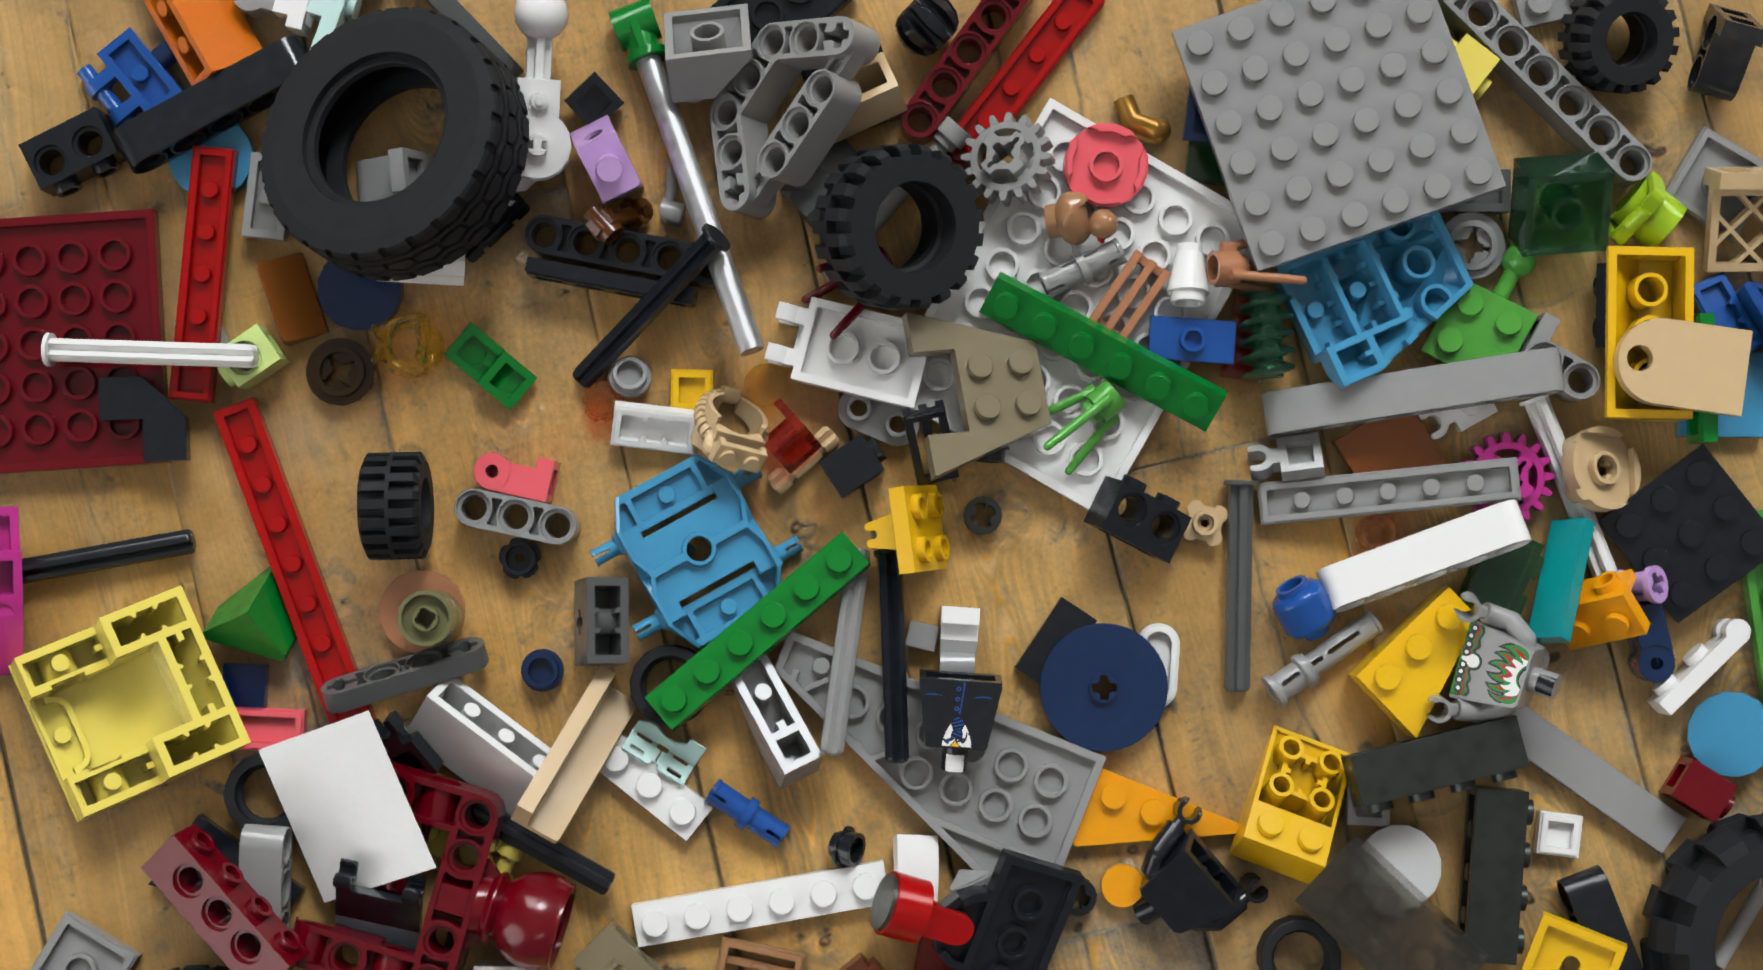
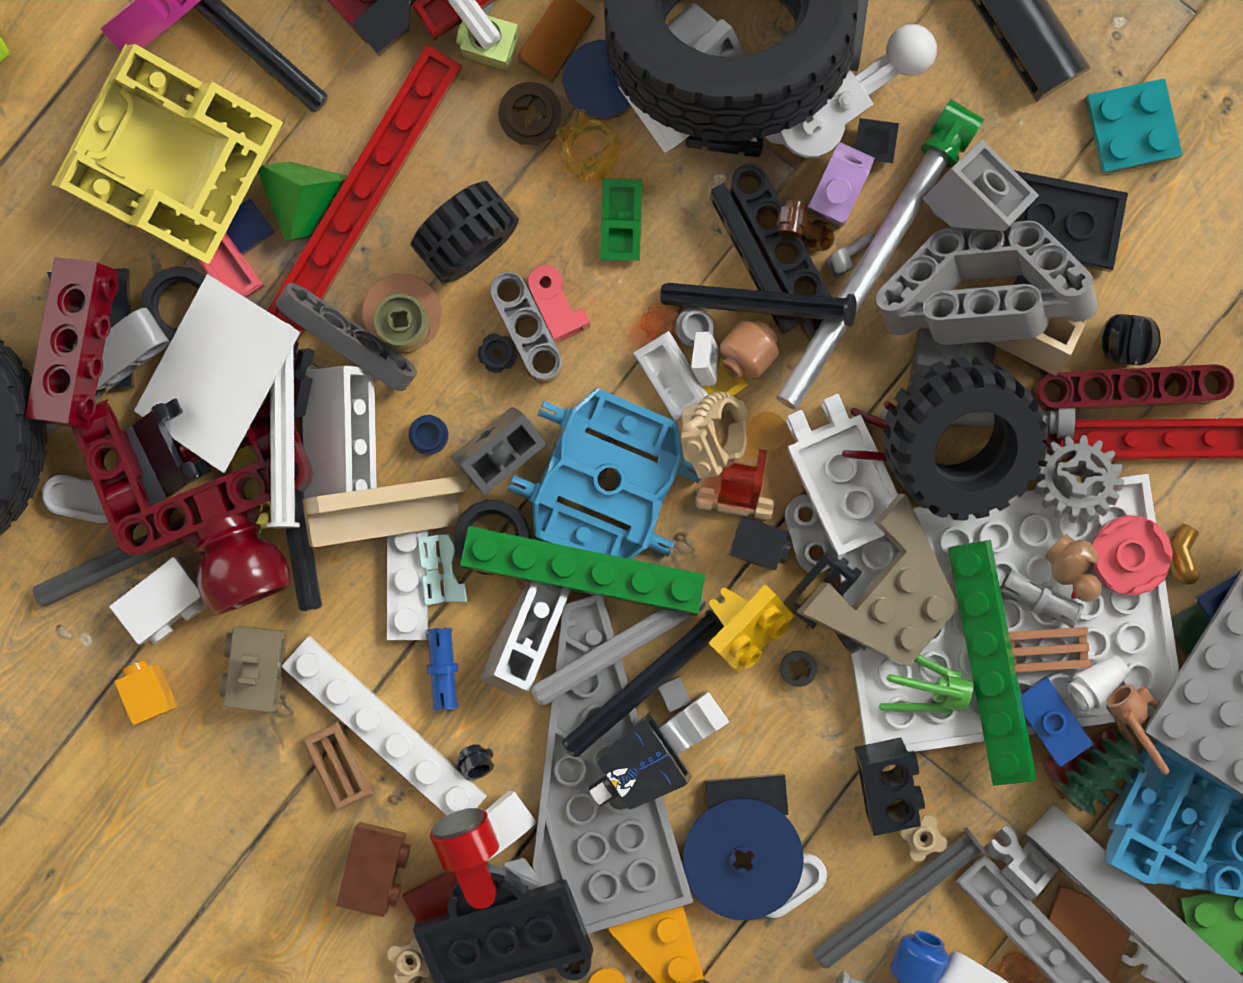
camera: 55 degrees right, 0 degrees up
(454, 801) = (282, 447): none -> white axle
(662, 388) = (705, 359): none -> white tile
(684, 346) = (749, 350): none -> nougat head

